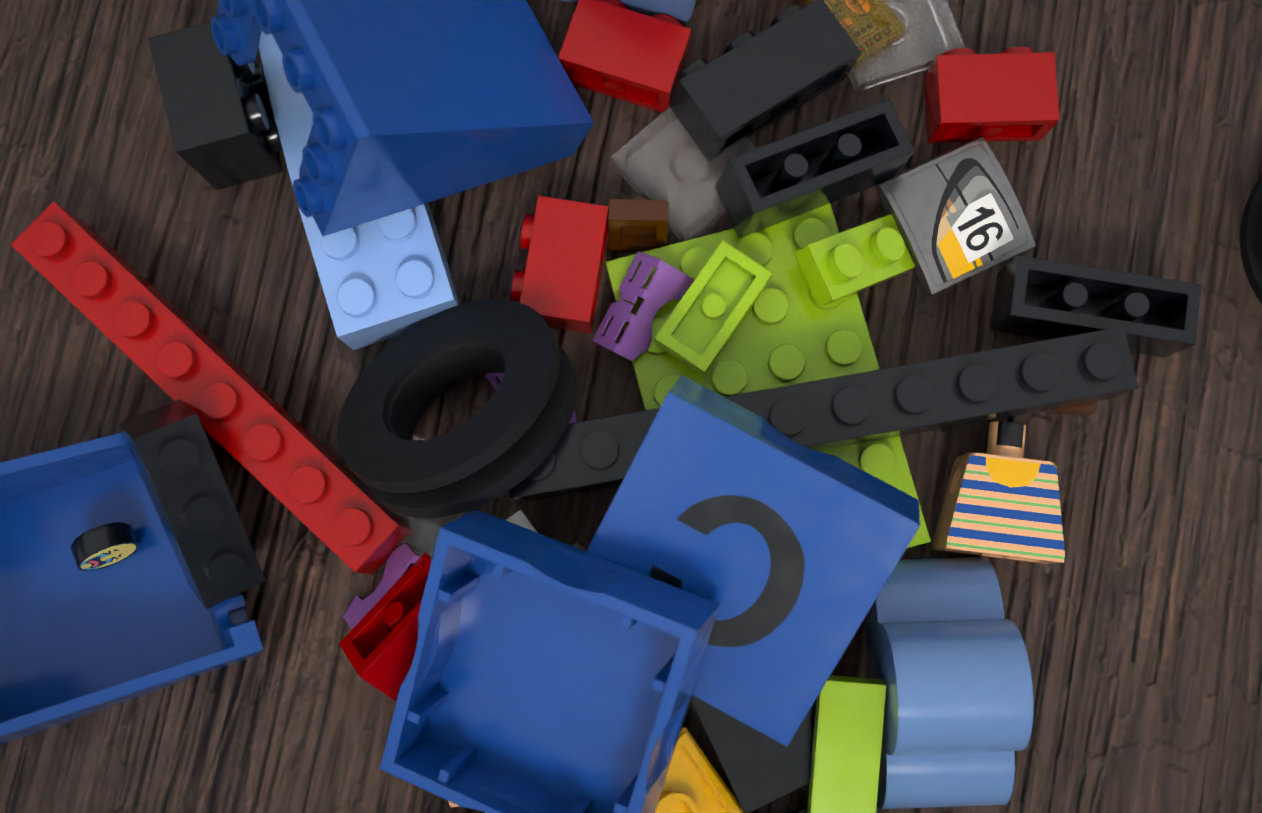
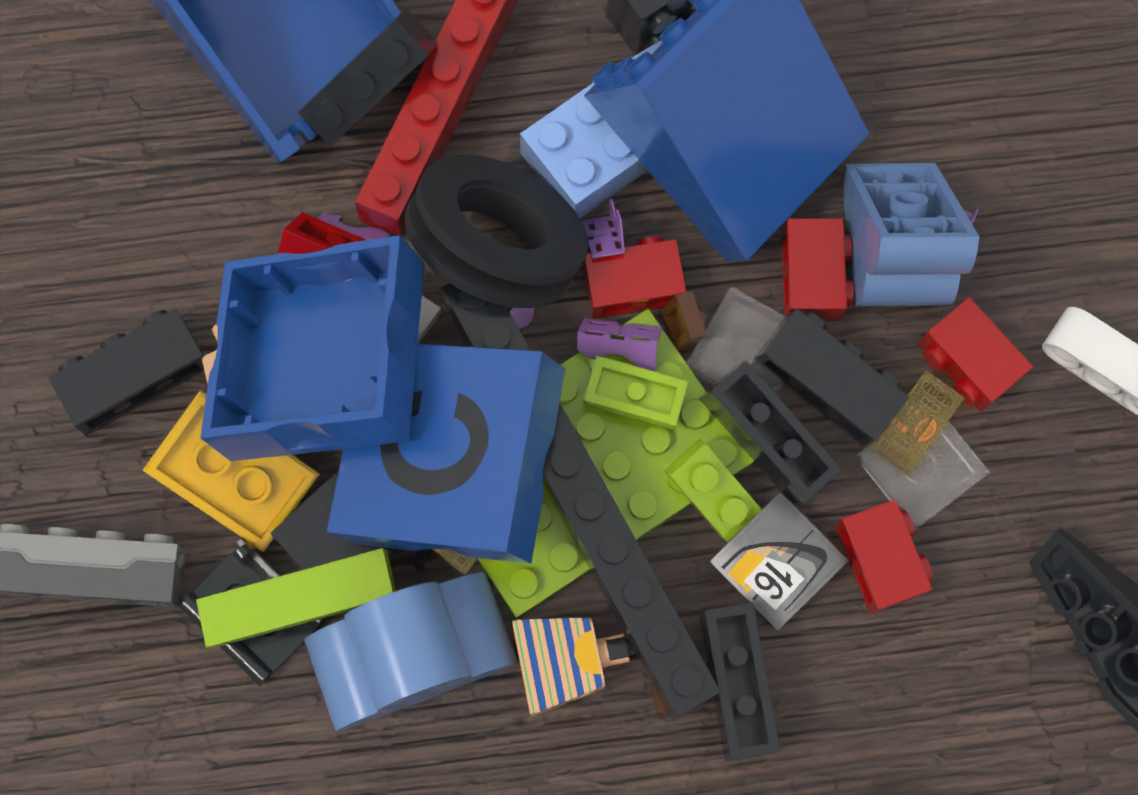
camera: 65 degrees right, 5 degrees down
(104, 546) = (319, 31): black tile -> none
(496, 282) = (603, 233): none -> medium lavender piece

